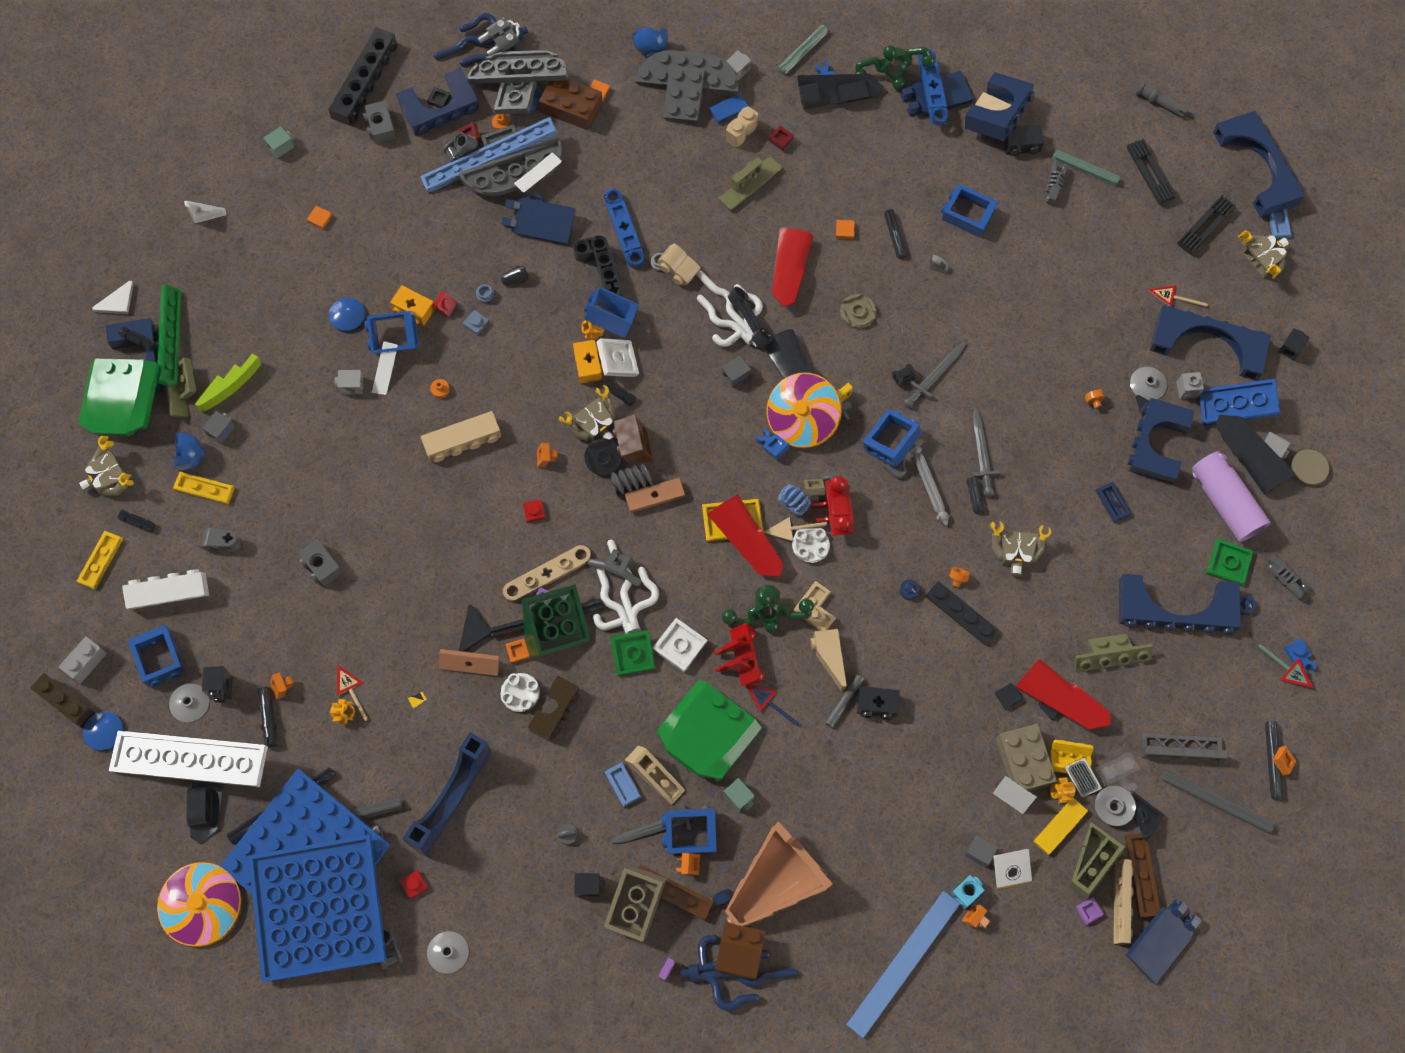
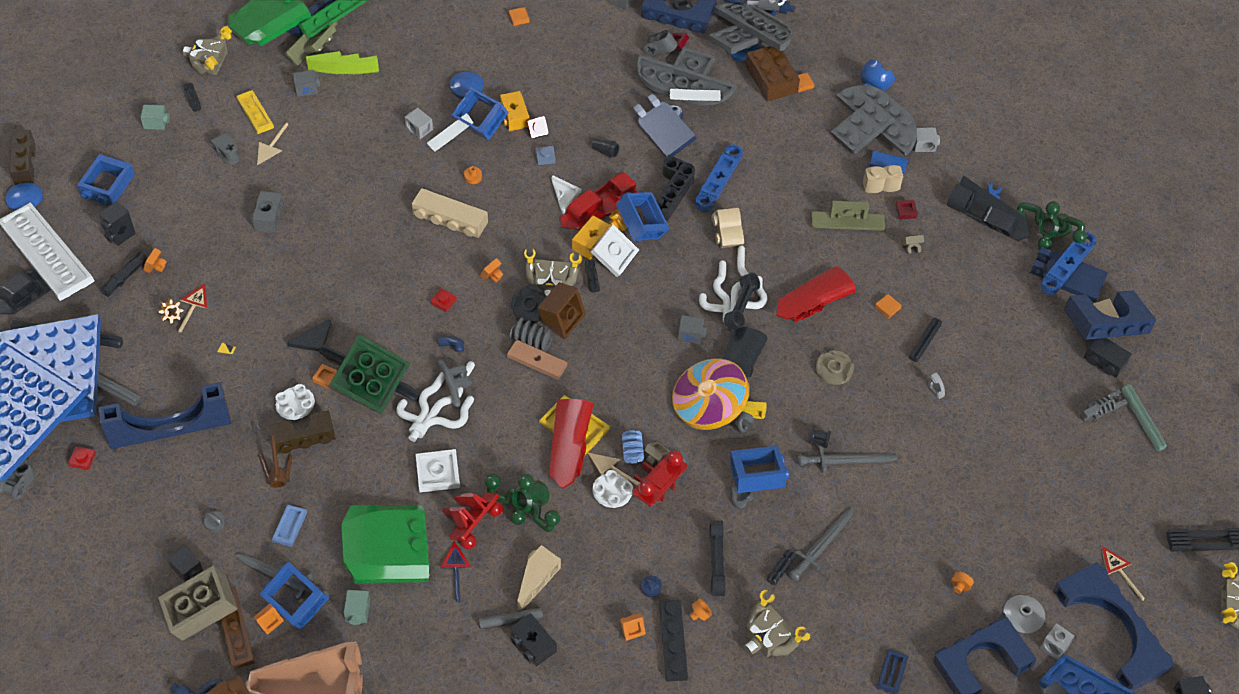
camera: 45 degrees right, 15 degrees down
(82, 660) = (62, 145): light grey brick -> none
(99, 560) = (136, 102): yellow tile -> none
(129, 566) = (154, 117): none -> sand green brick
(165, 590) = (158, 147): white brick -> none
(187, 451) = (268, 80): blue cylinder -> none
(192, 711) = (86, 230): light grey dish -> none
(254, 512) = (268, 151): none -> tan piece
(453, 961) = (52, 528): light grey dish -> none
(469, 662) = (284, 353): nougat tile -> none
(485, 293) = (573, 142): sand blue plate -> none
(500, 121) = (709, 49): orange tile -> none
(511, 144) = (696, 64): medium blue tile -> none
(524, 340) = (565, 193): none -> white tile
(533, 579) = (416, 348): tan piece -> none
(561, 325) = (598, 202): none -> red panel
(574, 757) = (277, 476): none -> reddish brown plant
(579, 536) = (452, 340): none -> dark blue arm
(632, 652) = (398, 444): green tile -> none
(654, 774) = (317, 538): tan slope -> none
(666, 970) = (167, 673): medium lavender tile -> none
(723, 897) = (261, 662): dark blue tile -> none
(773, 445) = (662, 399): blue plate -> none
(803, 49) = (992, 167): sand green axle -> none
(811, 161) = (912, 241): none -> dark tan tile
(820, 618) = (564, 531): tan tile -> none
(929, 484) = (753, 528): light grey wheel -> none
(929, 629) = (632, 626): none -> orange tile
(948, 544) = (717, 558): none -> black piece
(962, 222) = (1008, 385): blue window -> none
(1163, 192) = (1193, 486): black container -> none

